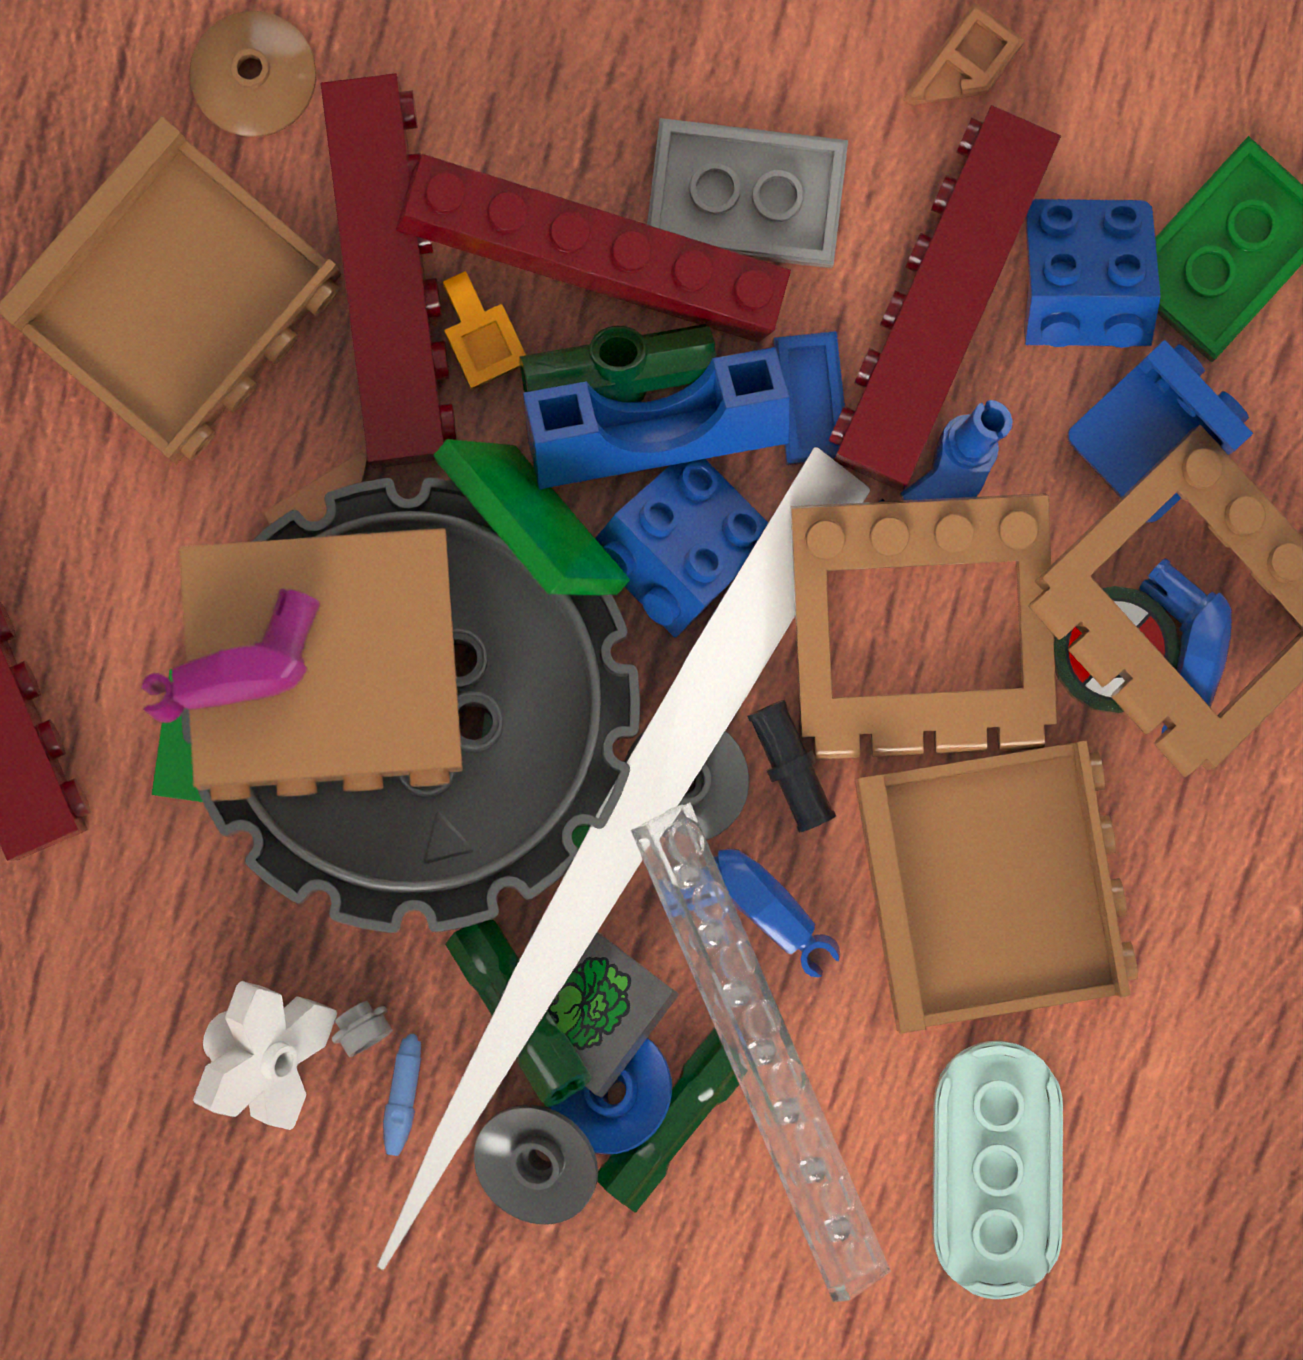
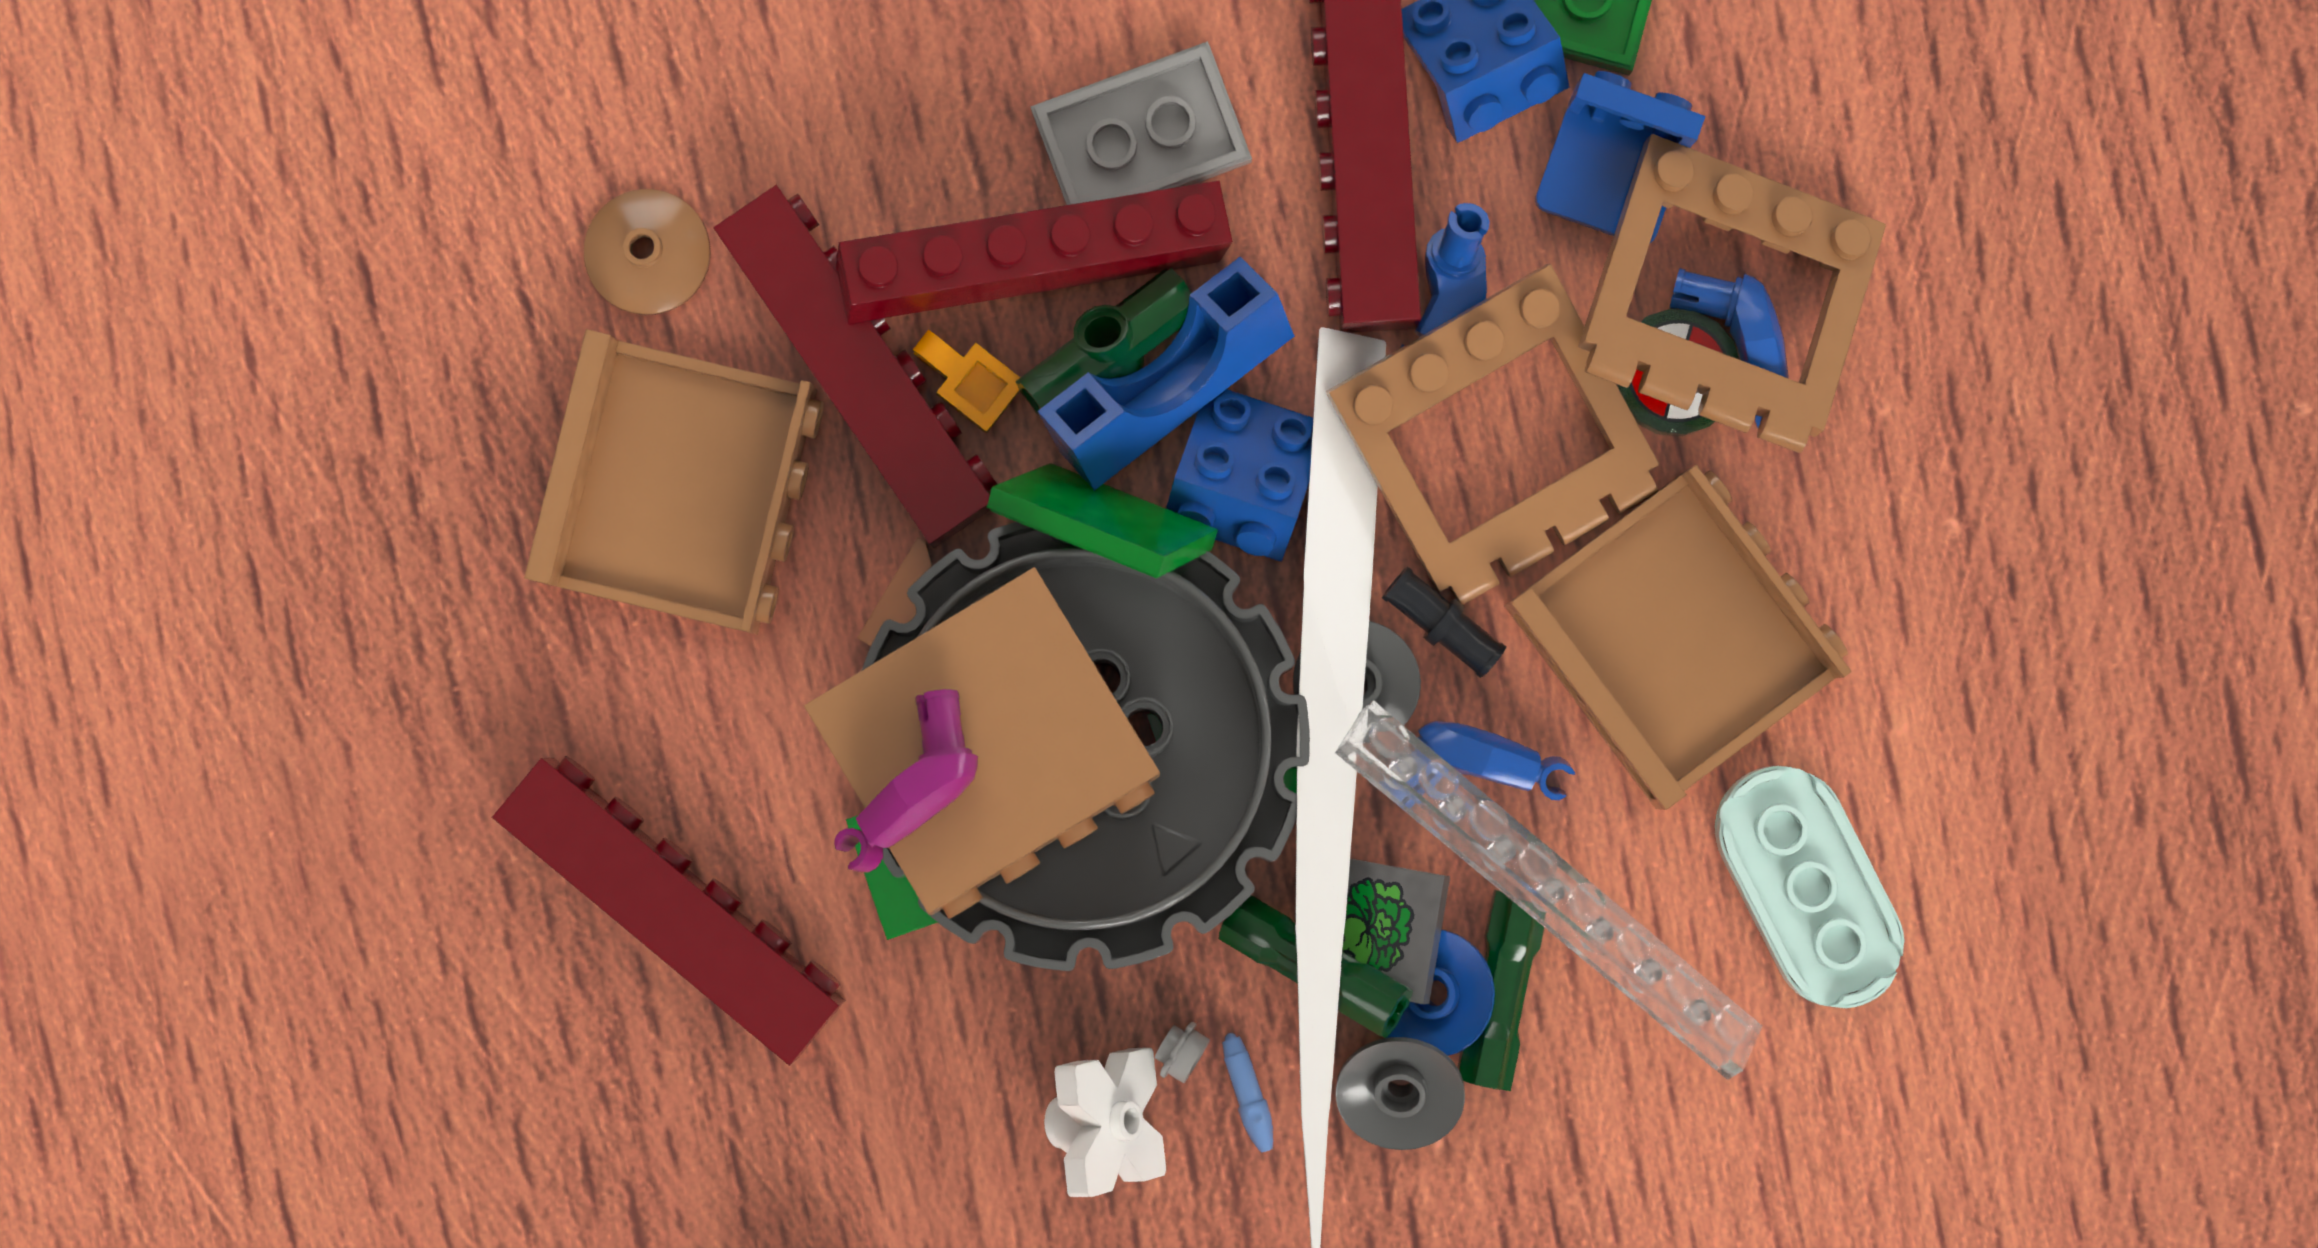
camera: 25 degrees left, 0 degrees up
(815, 392) = (1294, 275): blue tile -> none

